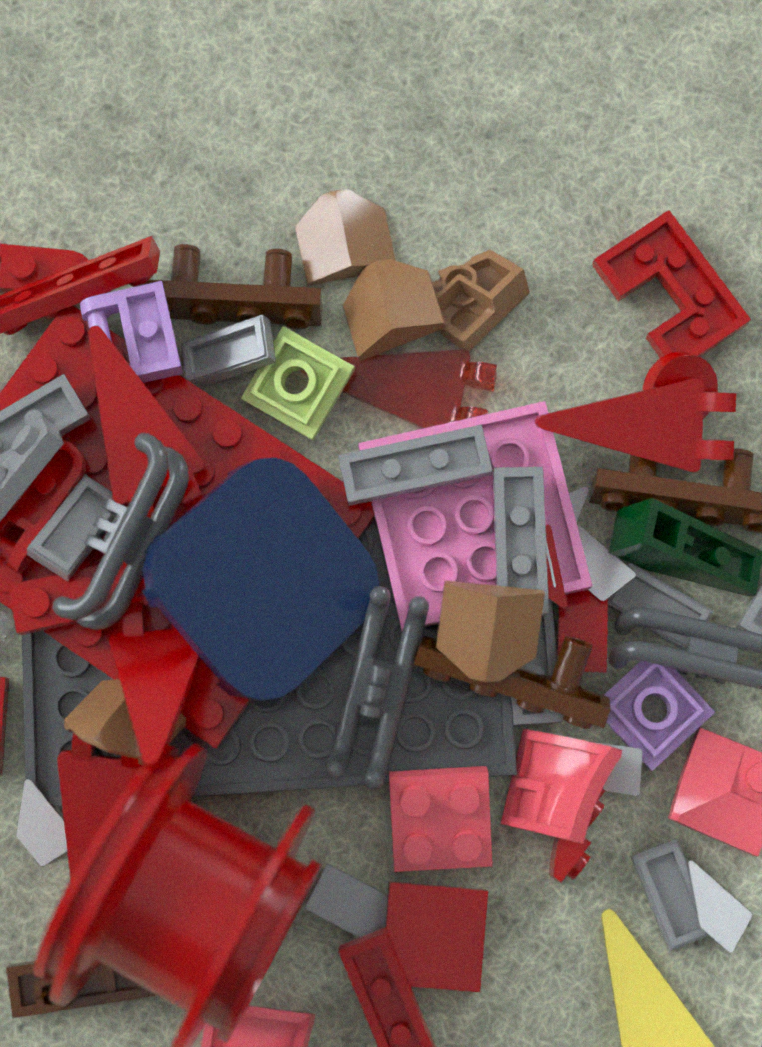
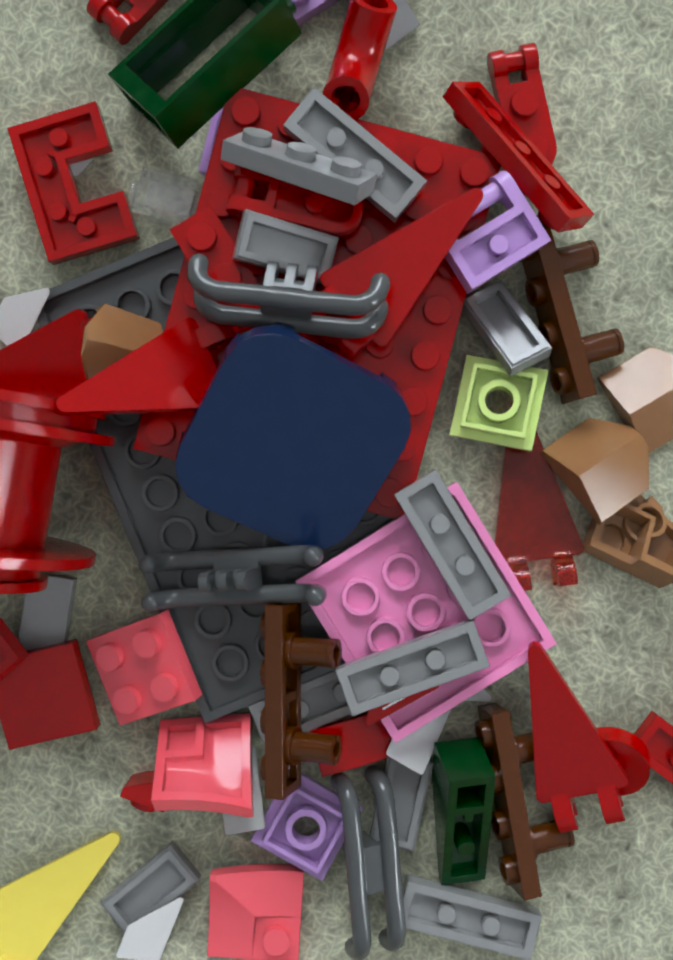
camera: 70 degrees right, 10 degrees up
(489, 628) = (318, 666): medium nougat slope -> none

